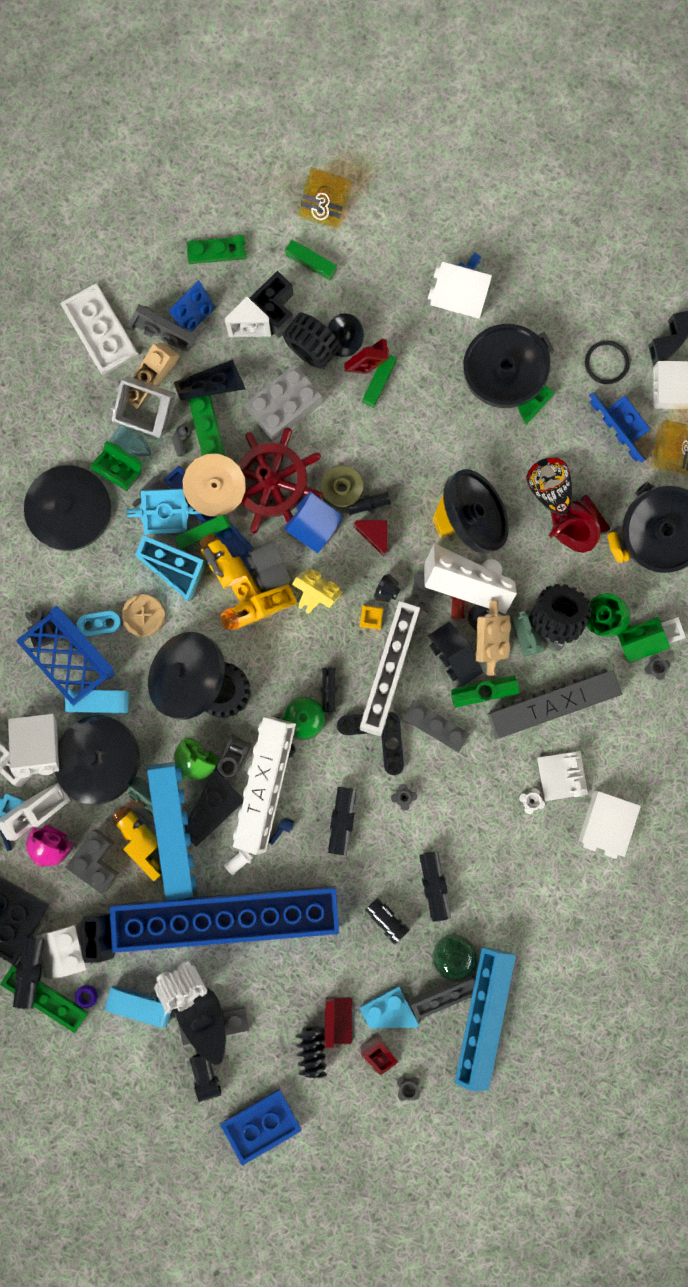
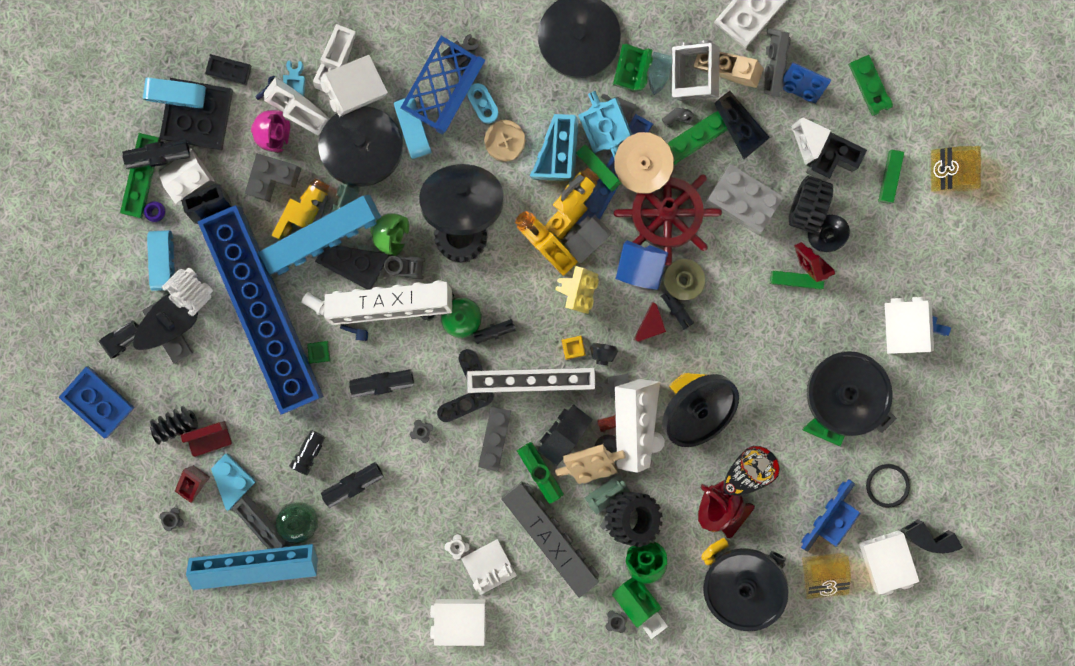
camera: 70 degrees right, 5 degrees up
(288, 875) = (318, 352): none -> green tile

